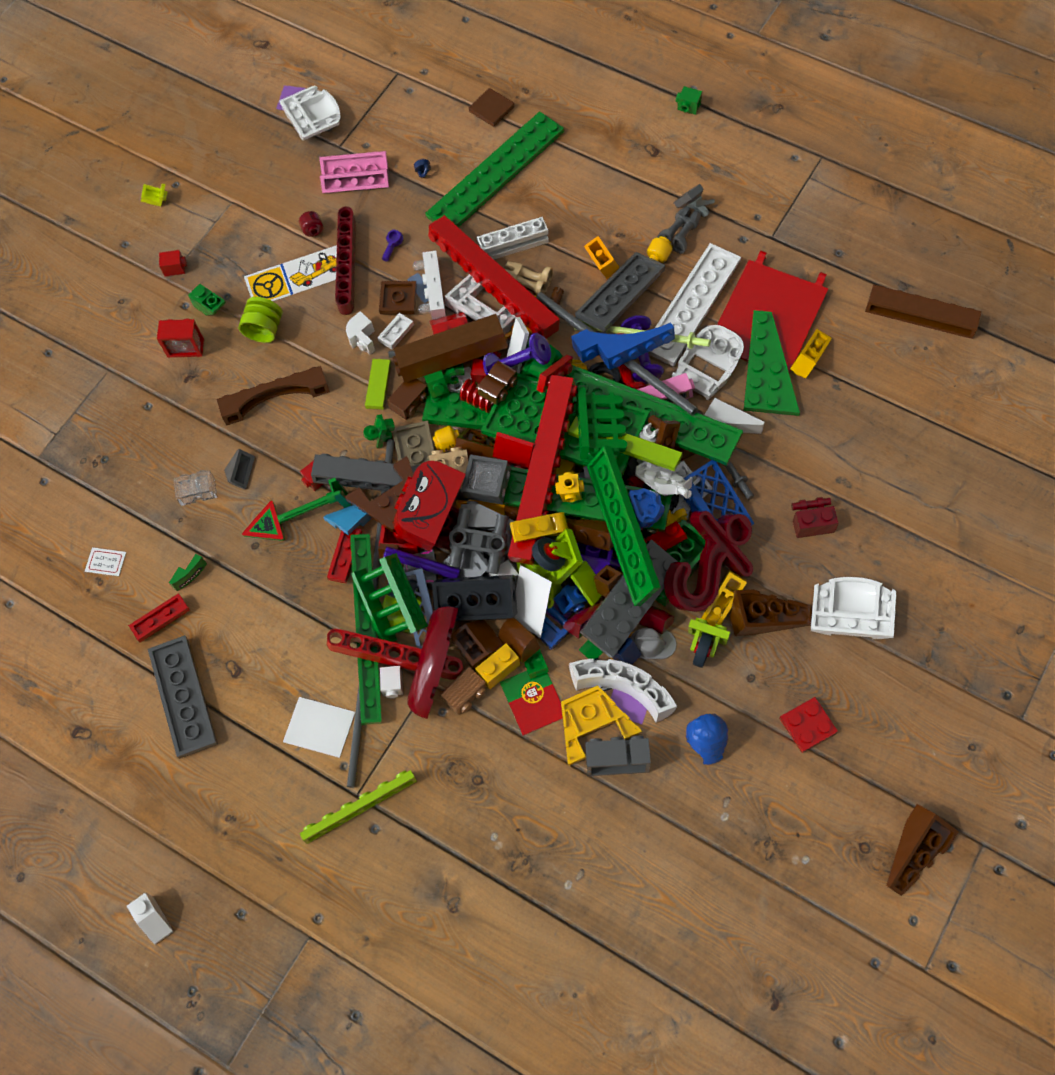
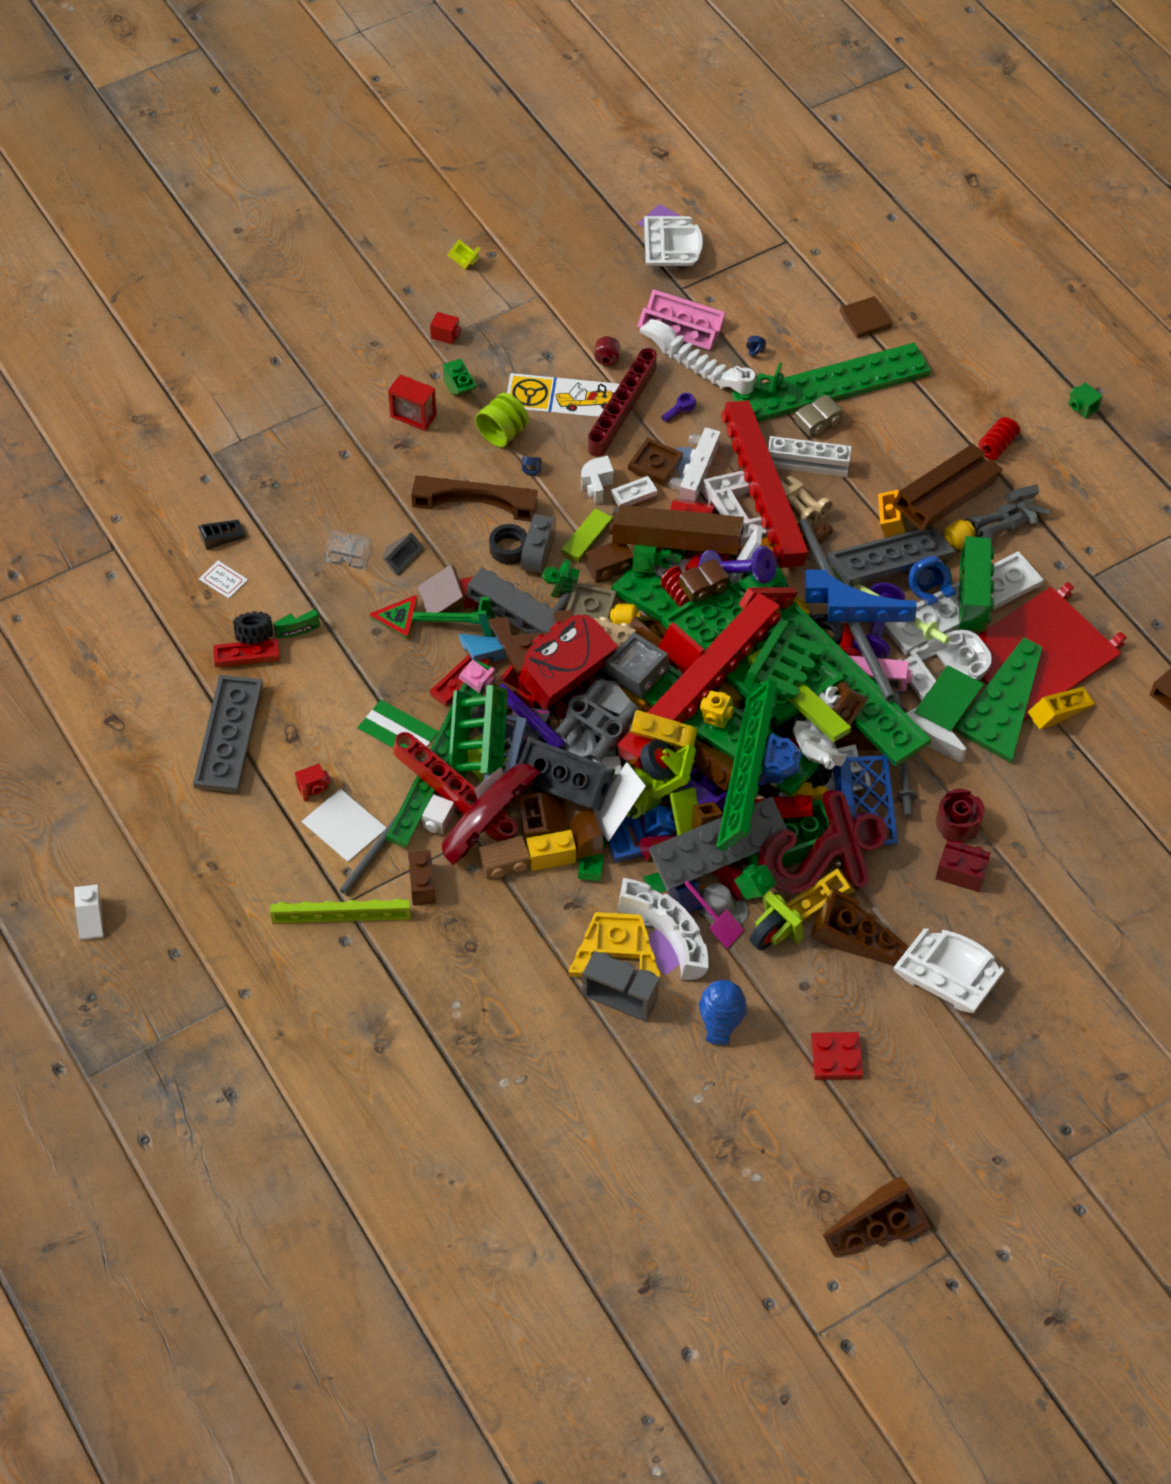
camera: 20 degrees right, 10 degrees down
(81, 531) = (211, 539): none -> black slope
(153, 594) = (253, 627): none -> black tyre
(273, 703) = (311, 780): none -> red brick
(291, 487) = (442, 591): none -> tile
(300, 343) = (533, 461): none -> dark blue tile
(315, 621) = (387, 722): none -> green sticker
(321, 408) = (507, 531): none -> black tyre
(345, 410) = (538, 543): none -> dark grey brick
(360, 549) = (477, 676): none -> bright pink bracket
(408, 743) = (421, 877): none -> reddish brown brick
(420, 641) = (488, 782): none -> white sticker
(425, 201) = (665, 337): none -> white piece
(454, 190) = (775, 380): none -> green bracket
(501, 203) = (818, 416): none -> dark tan brick
(532, 701) = (567, 901): red sticker -> none
(632, 217) = (947, 487): none -> reddish brown brick
(644, 159) = (999, 437): none -> red piece
(656, 292) = (928, 574): none -> blue hair
(667, 660) = (725, 926): none -> dark pink piece
(675, 616) = (755, 881): none -> green brick
(698, 285) = (976, 584): none -> green brick
(728, 387) = (948, 698): none -> green sticker
(789, 478) = (959, 815): none -> dark red brick

